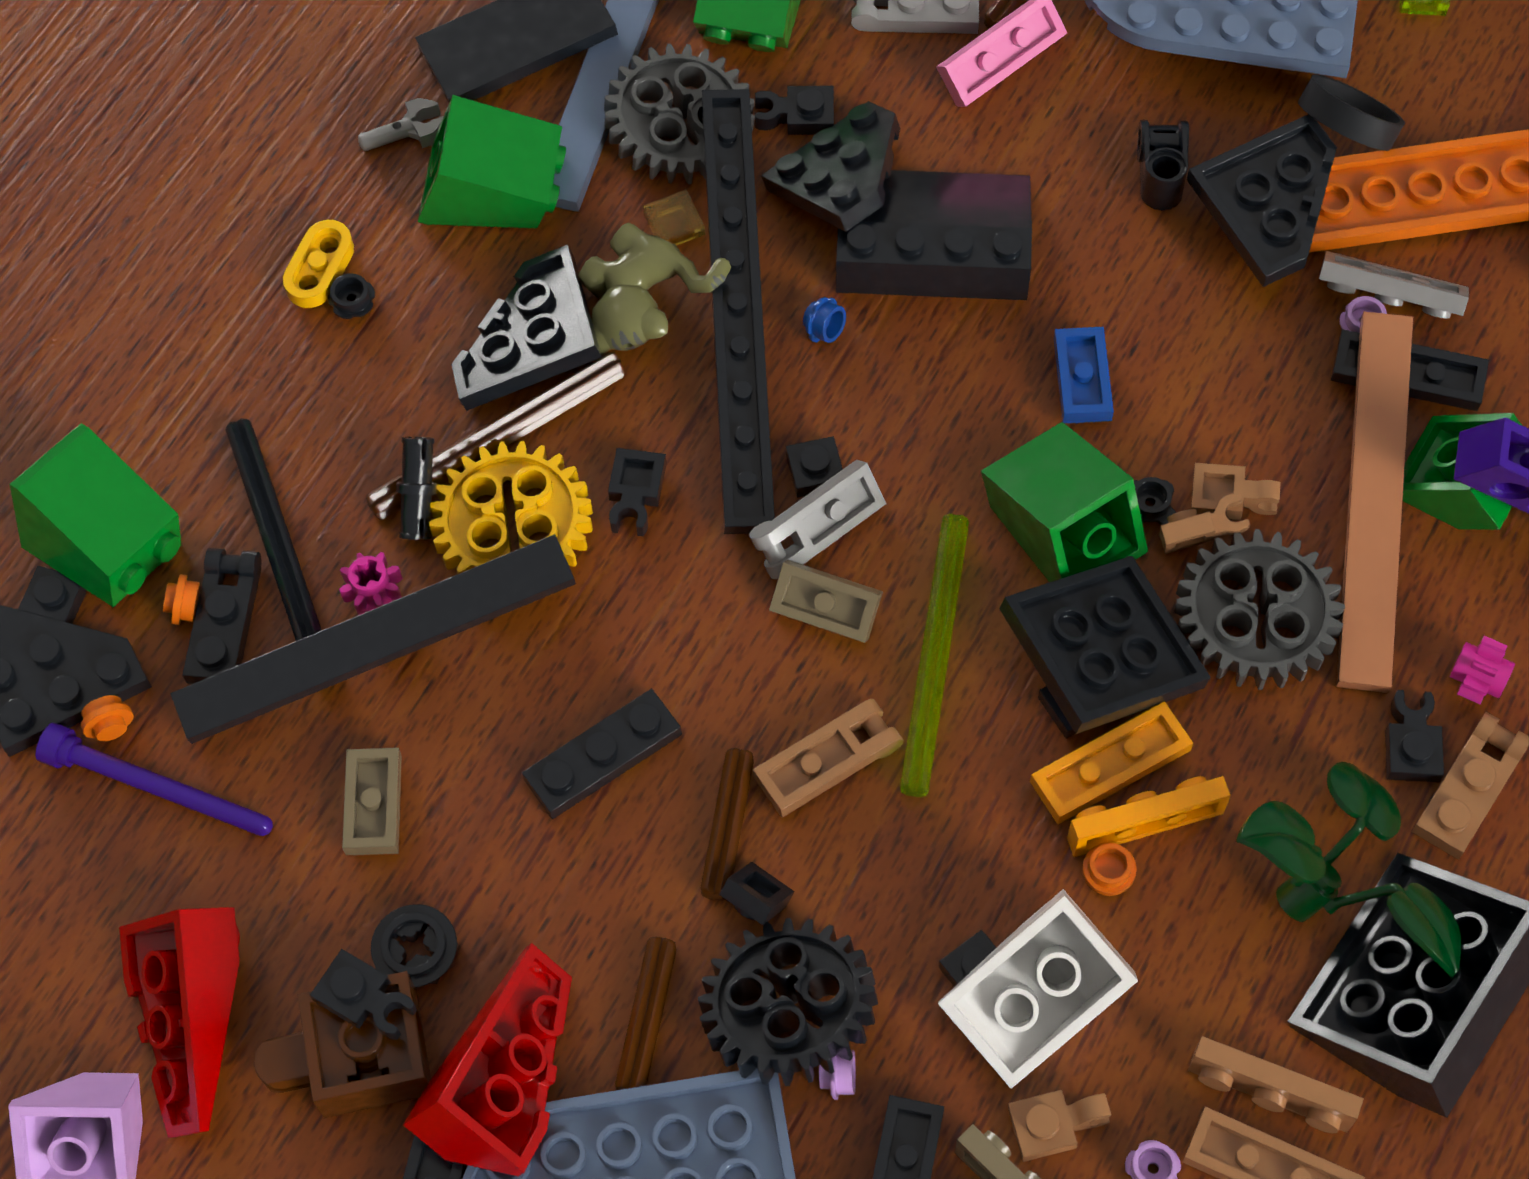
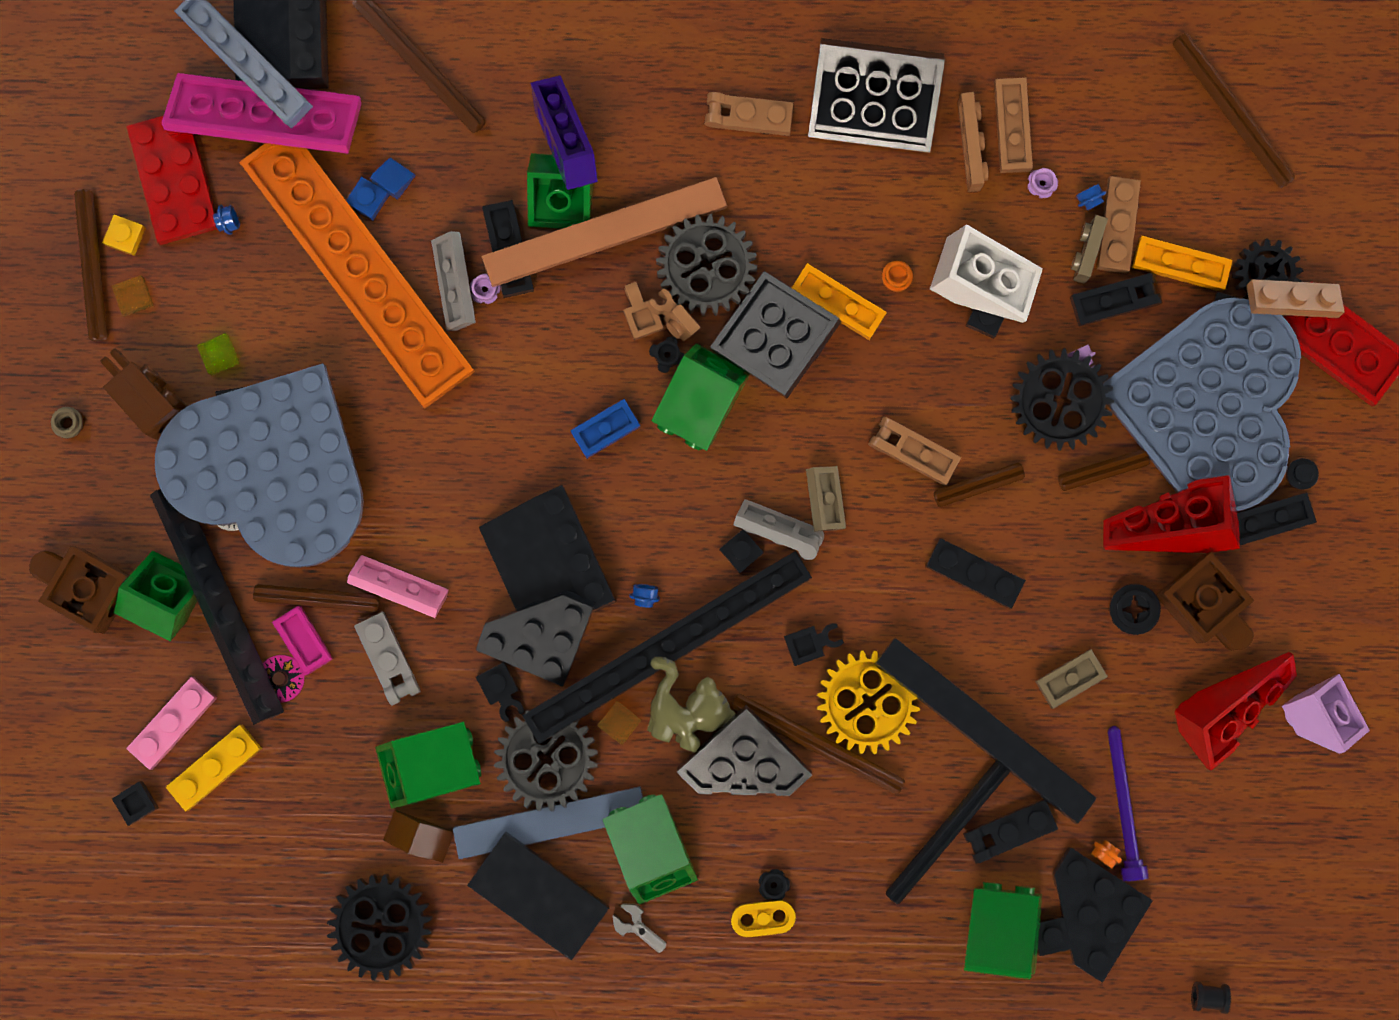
camera: 120 degrees left, 20 degrees up
(181, 599) = (1016, 858): orange plate -> none
(357, 991) = (1191, 611): black plate -> none
(370, 582) = (943, 750): dark pink gear -> none
(416, 487) = (883, 763): black pin -> none
(756, 893) = (1011, 446): black plate -> none
(934, 656) = (821, 426): clear neon green axle -> none
(1048, 1125) = (1048, 243): medium nougat plate -> none
(1148, 814) = (859, 269): light orange plate -> none
(1163, 163) = (429, 453): black piece -> none
(1269, 195) = (435, 372): black plate -> none
(1314, 883) = (862, 172): dark green plant -> none
(1351, 112) = (367, 355): black tyre -> none
(1412, 746) = (742, 152): black plate -> none
(1482, 670) = (683, 133): dark pink gear -> none

